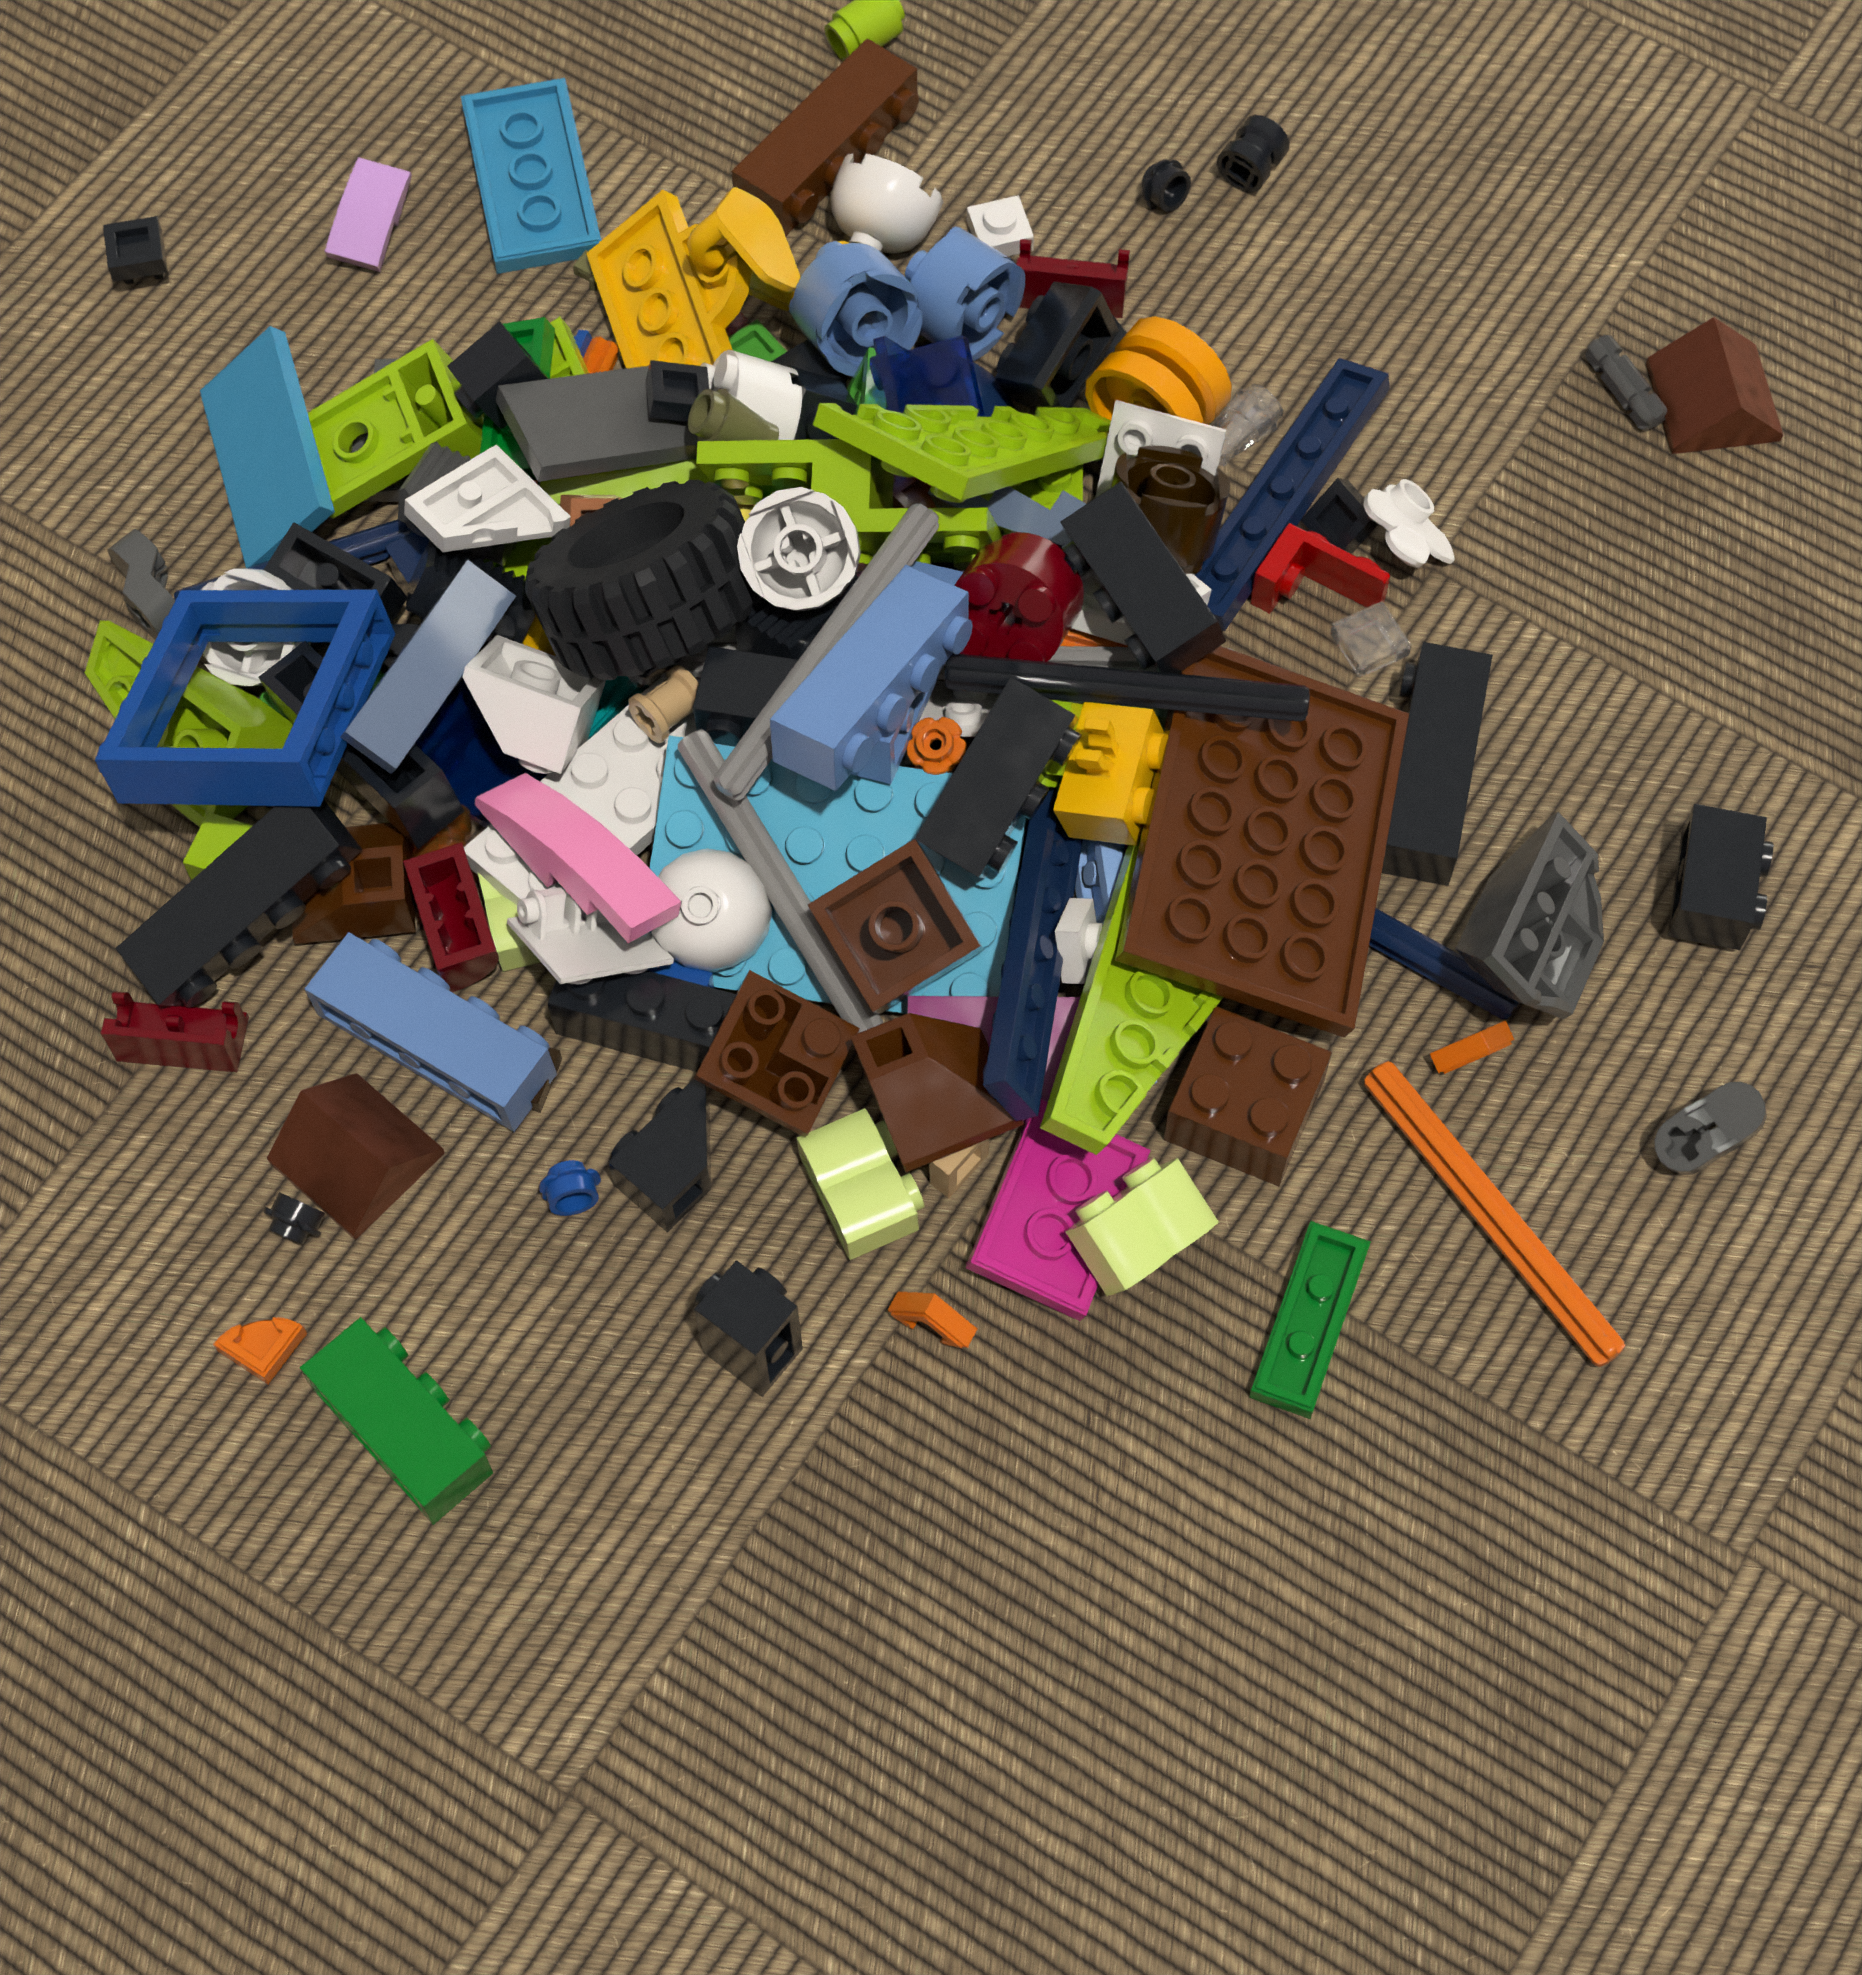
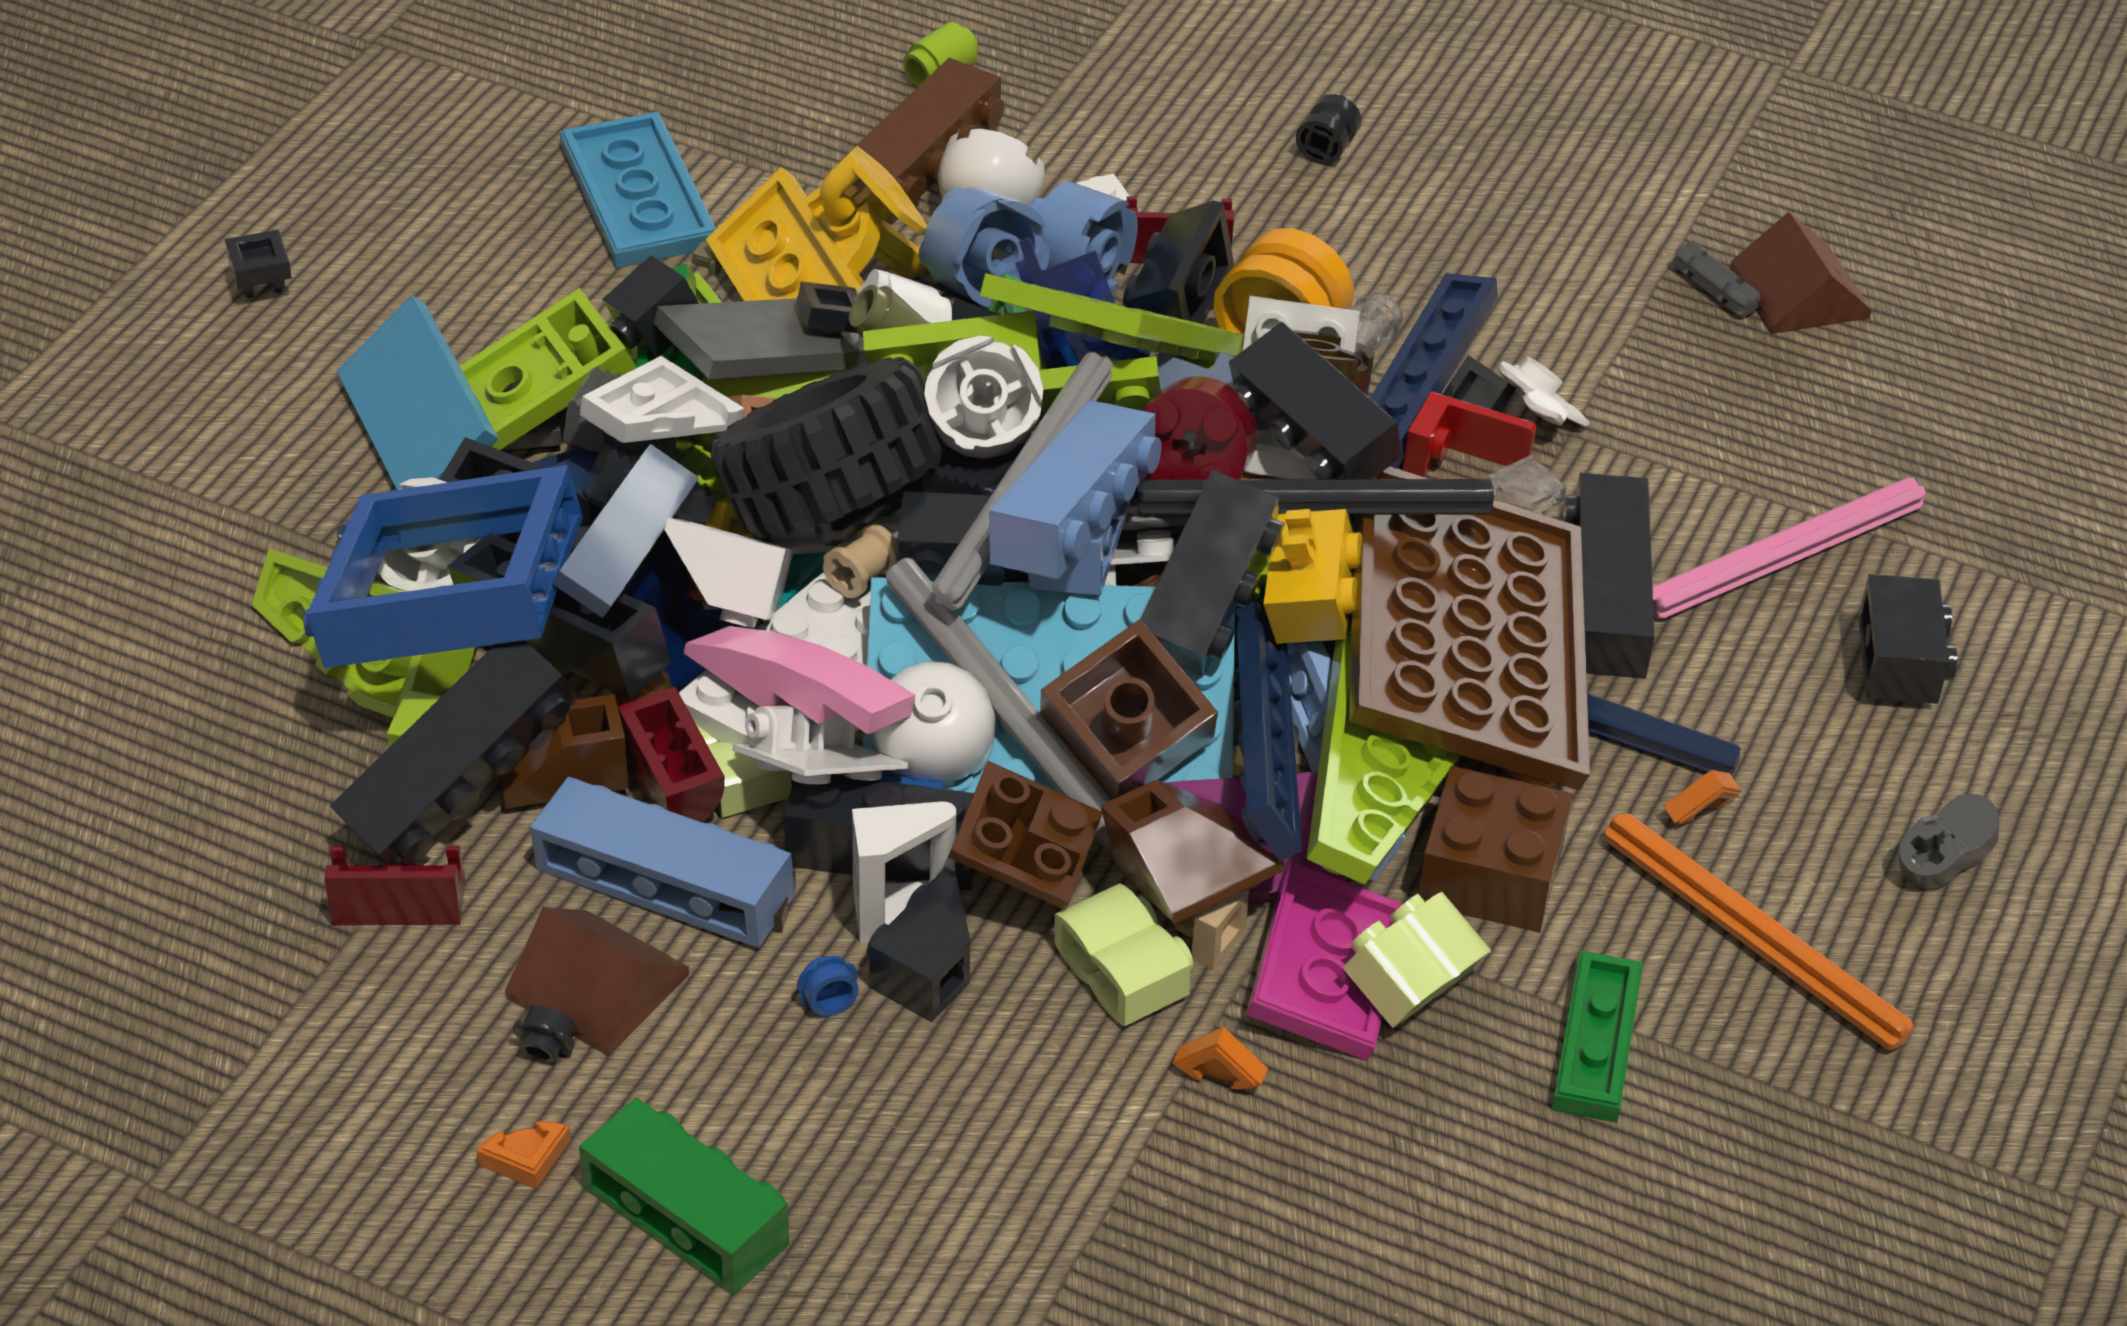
camera: 10 degrees left, 20 degrees down
(145, 580) = (300, 512): dark grey piece -> none
(367, 214) = (484, 224): lavender slope -> none
(633, 1067) = (885, 834): none -> white tile
(748, 1325) = (1040, 1071): black brick -> none
(940, 760) = (1140, 576): orange plate -> none
(1077, 939) = (1305, 723): white plate -> none
(1165, 185) = (1251, 158): black plate -> none
(1539, 921) = (1743, 684): dark grey wedge -> none
(1625, 739) = (1786, 547): none -> bright pink axle

